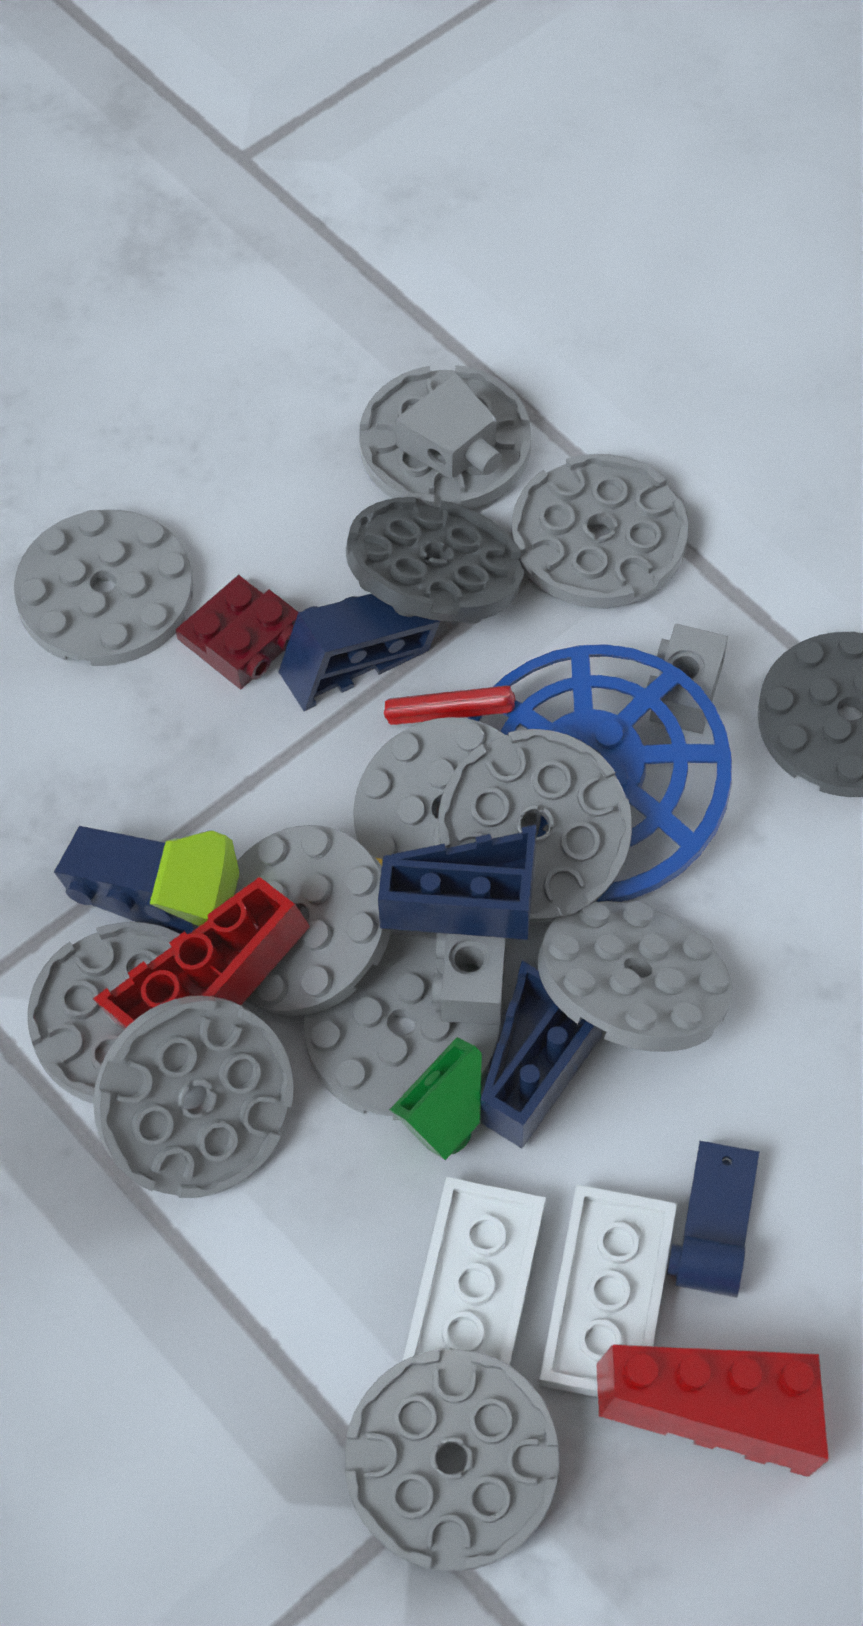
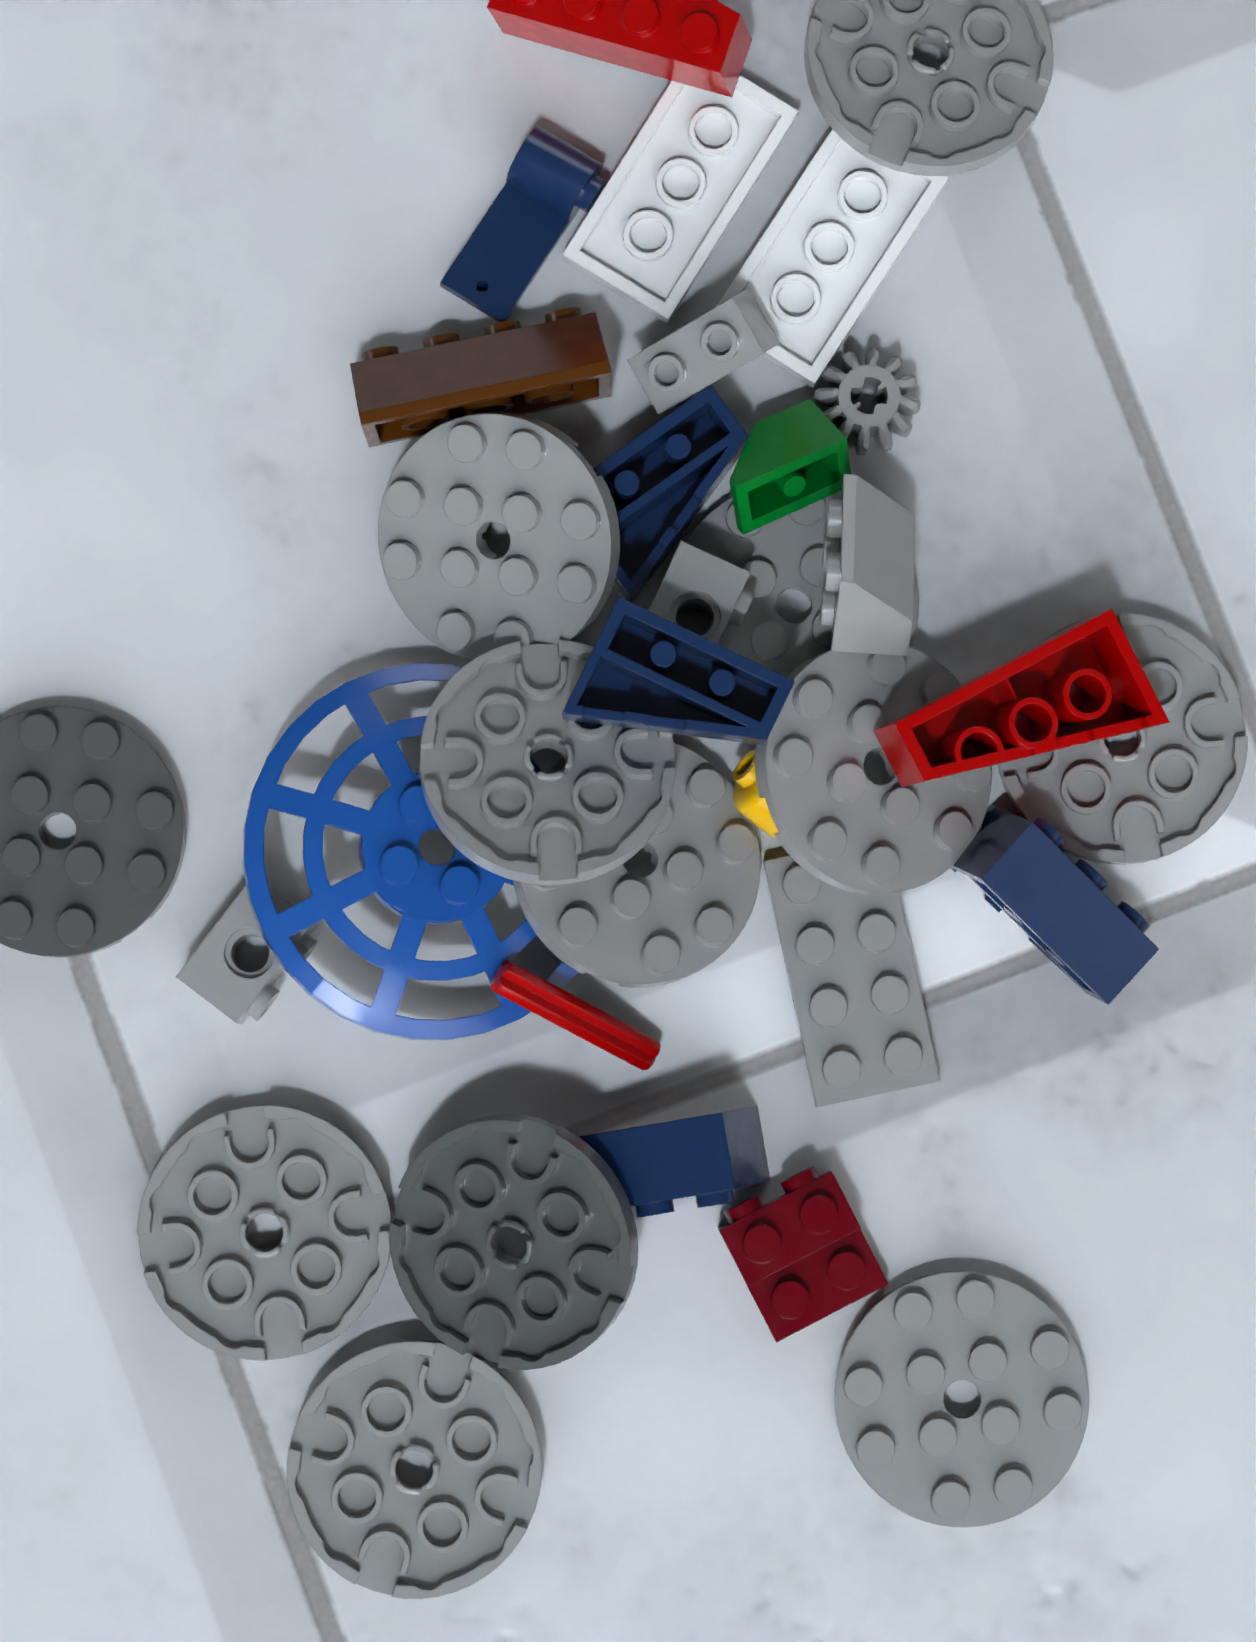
camera: 165 degrees left, 25 degrees up
(145, 1087) = (1145, 563): light grey plate -> none
(196, 876) = (996, 831): lime slope -> none
(256, 784) = (851, 986): none -> light grey plate
(352, 1025) = (868, 571): none -> light grey slope
(382, 1185) = (885, 415): none -> light grey gear
(450, 430) = (410, 1447): light grey torso -> none
(539, 1159) = (703, 351): none -> light grey brick
(697, 1086) = (502, 371): none -> reddish brown slope

